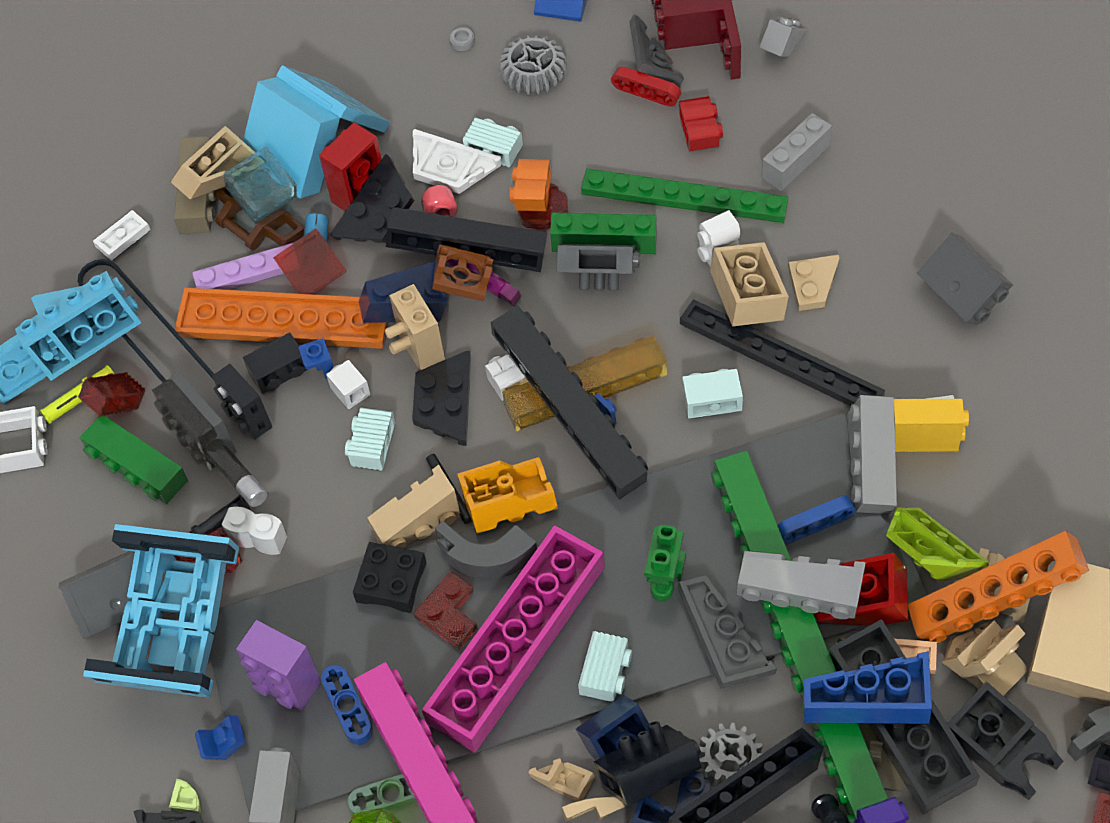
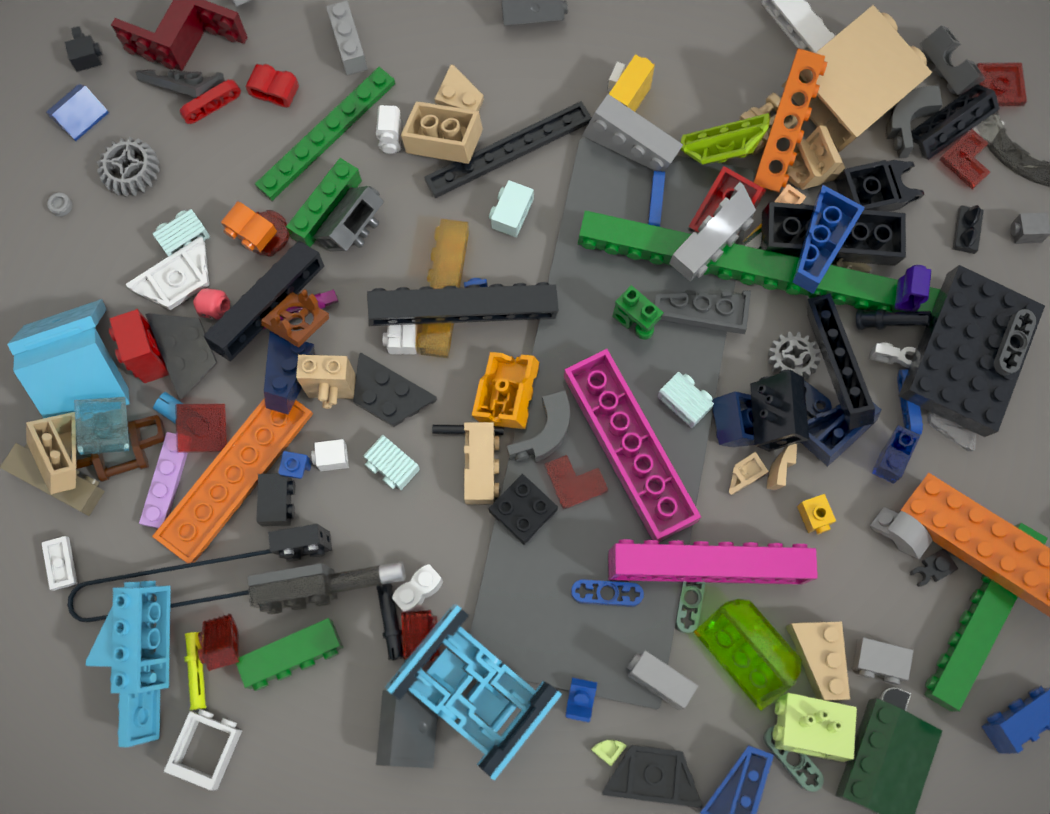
camera: 65 degrees left, 15 degrees up
(278, 666) = (563, 624): medium lavender brick -> none

